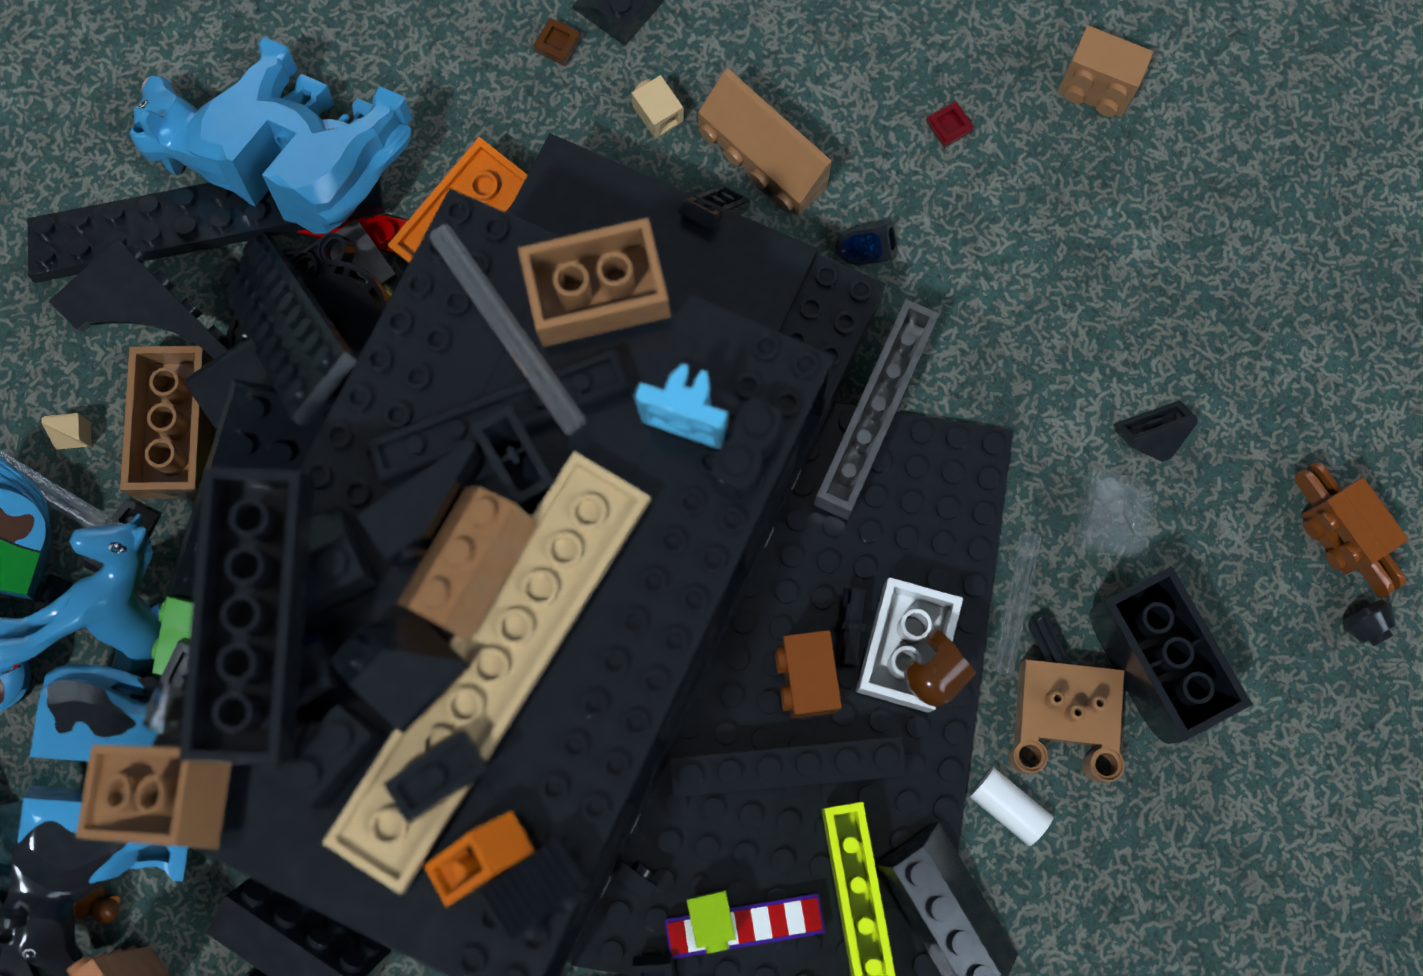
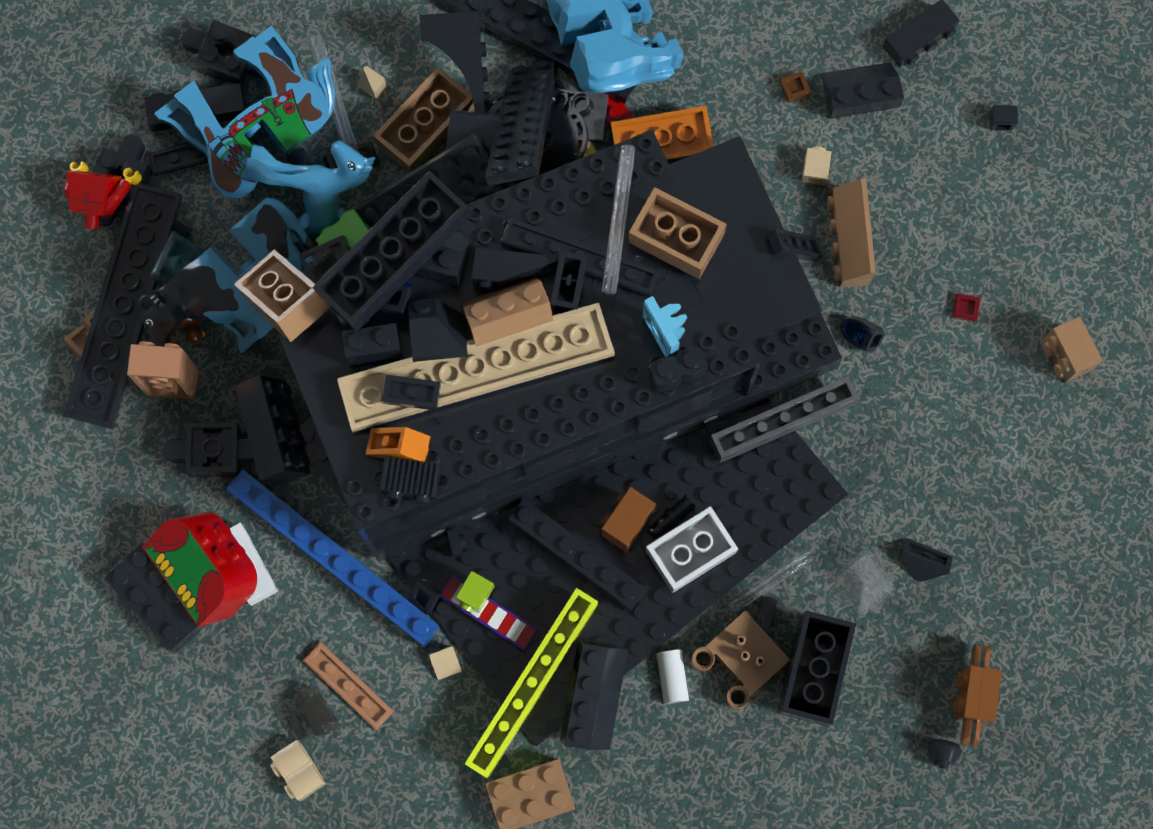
camera: 40 degrees right, 0 degrees up
(942, 676) = (689, 572): reddish brown helmet -> none

